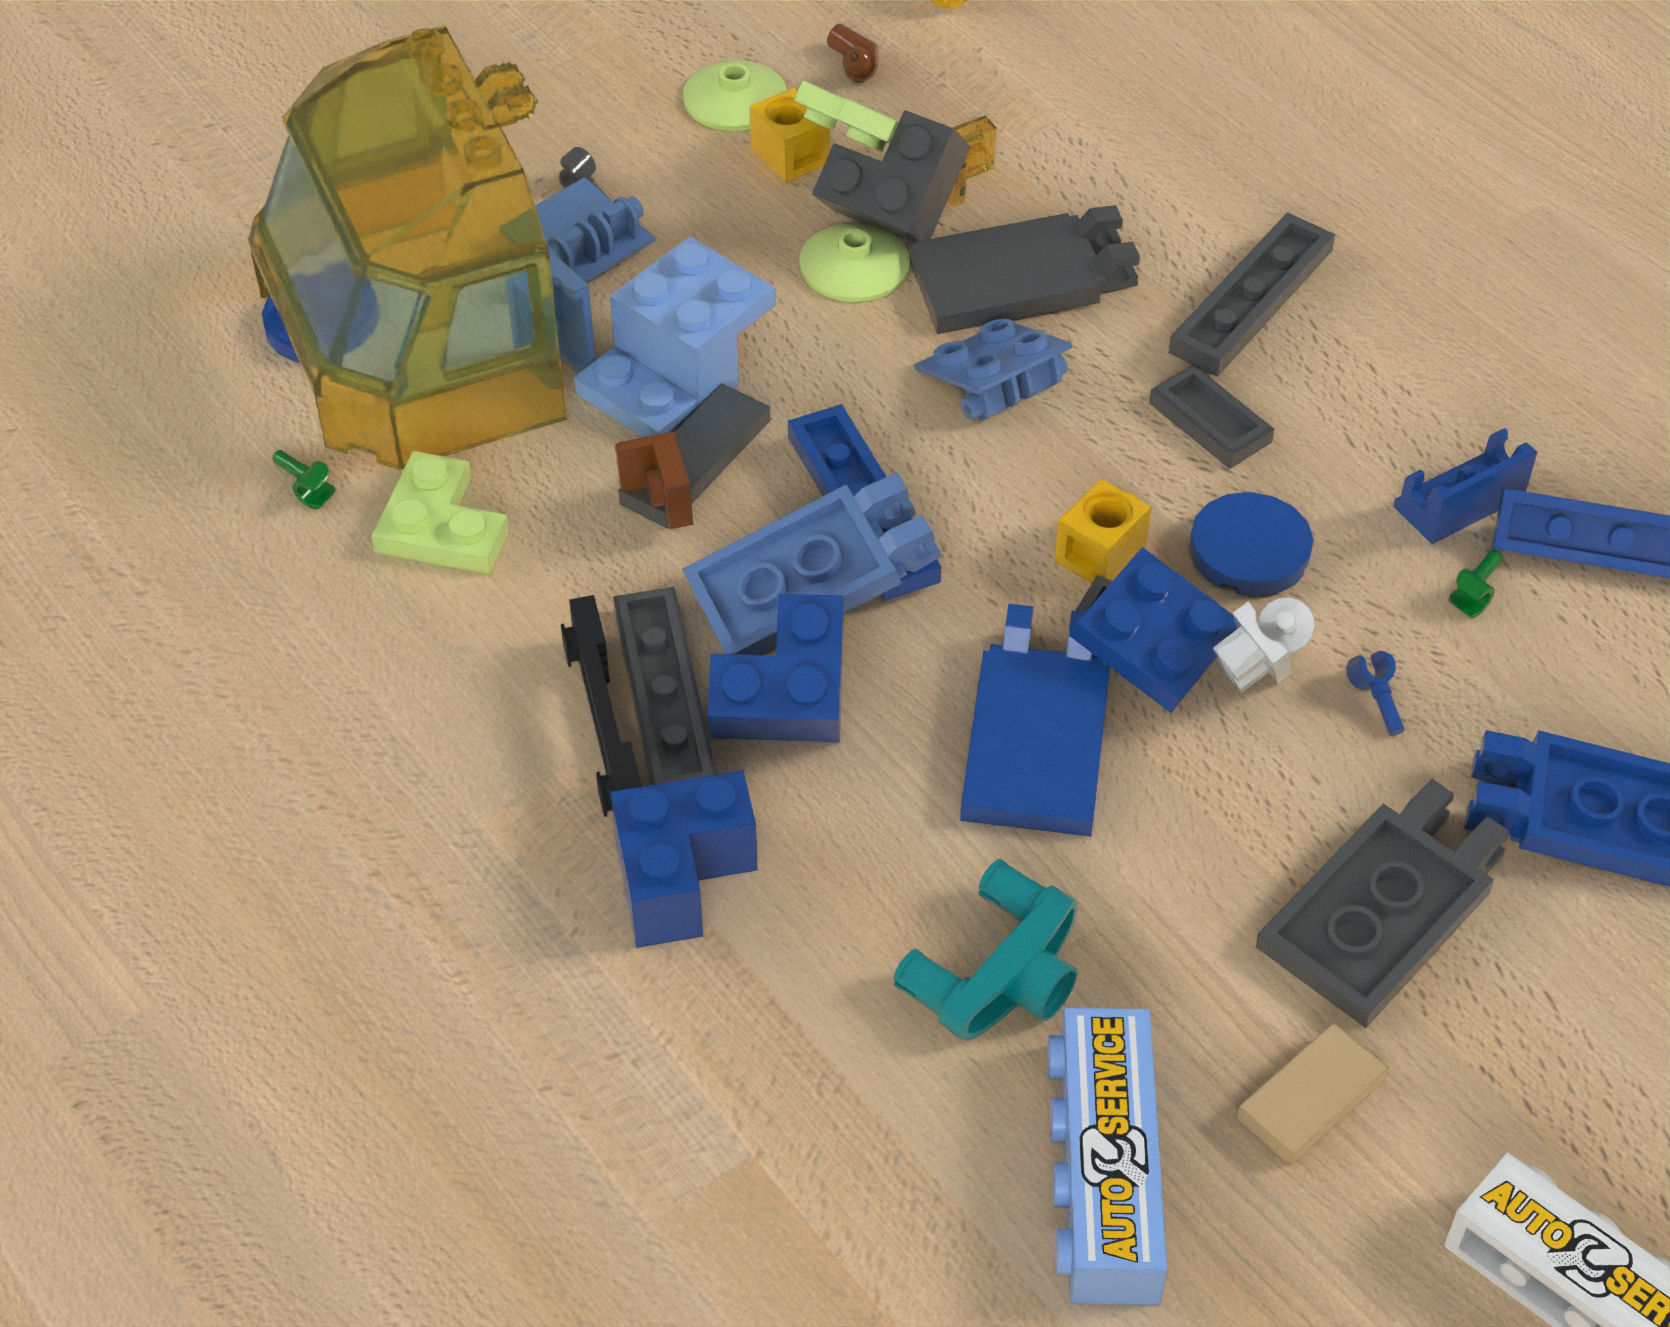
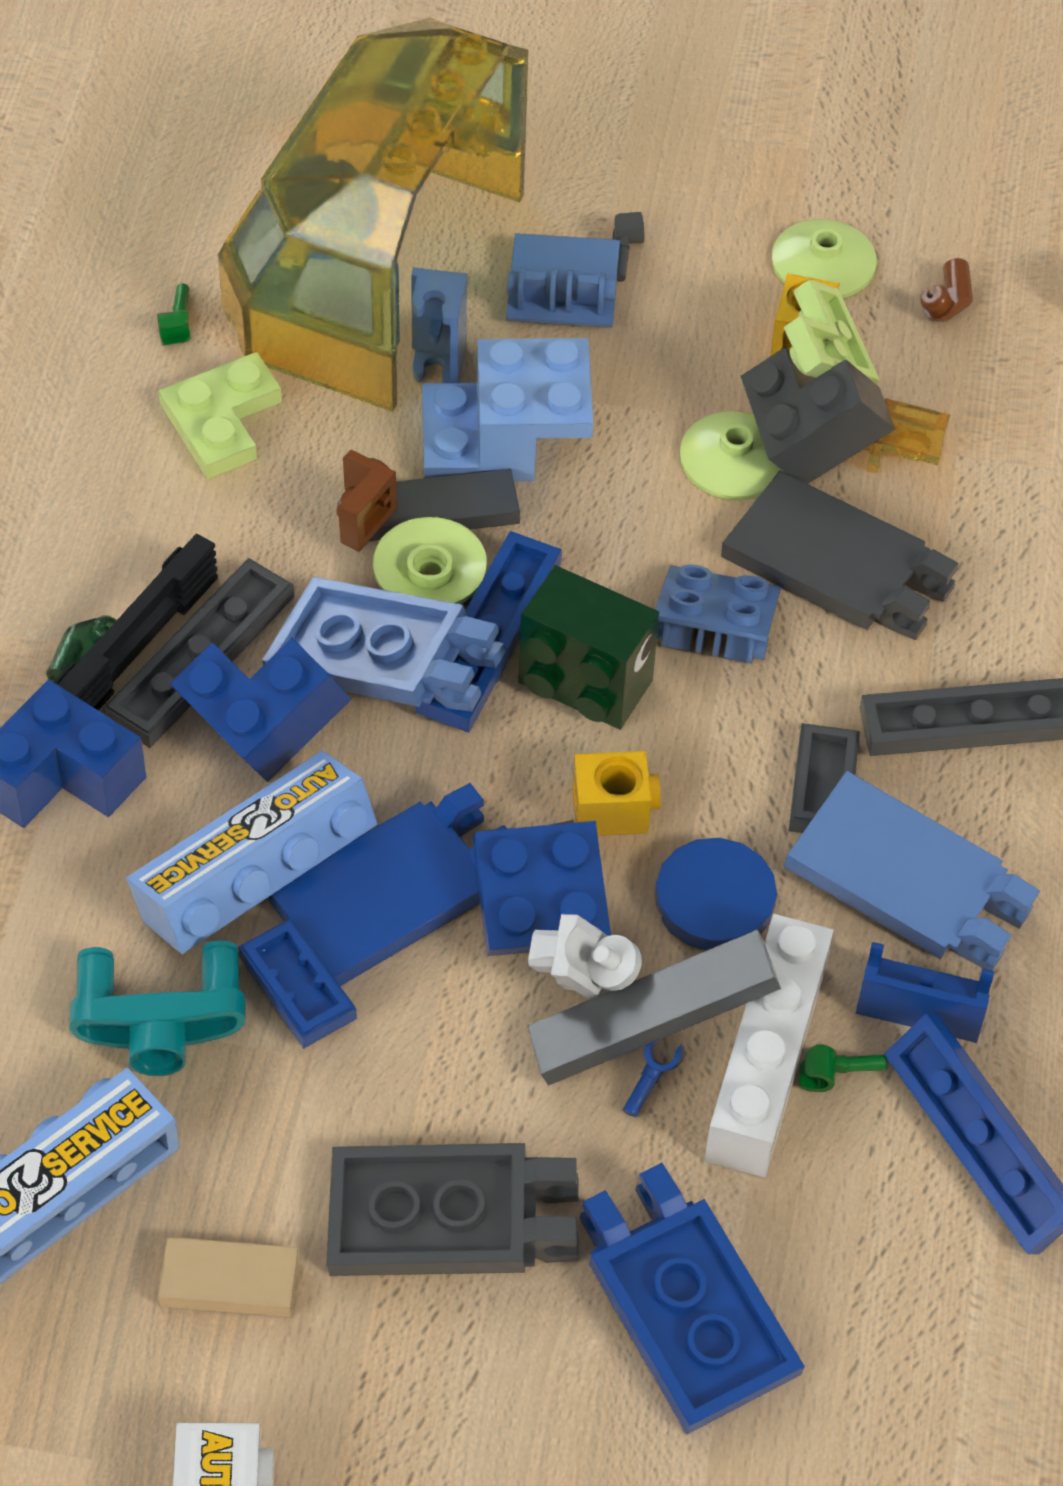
camera: 45 degrees right, 5 degrees up
(568, 761) = (76, 643): none -> clear green arm
(757, 486) = (435, 548): none -> yellowish green dish
(924, 787) = (252, 851): none -> light blue brick
(967, 443) = (587, 647): none -> dark green brick
(1074, 849) = (297, 983): none -> blue plate
(1344, 637) = (653, 1007): none -> tile
(1353, 423) = (910, 873): none -> medium blue tile
(1434, 601) = (769, 1050): none -> white brick

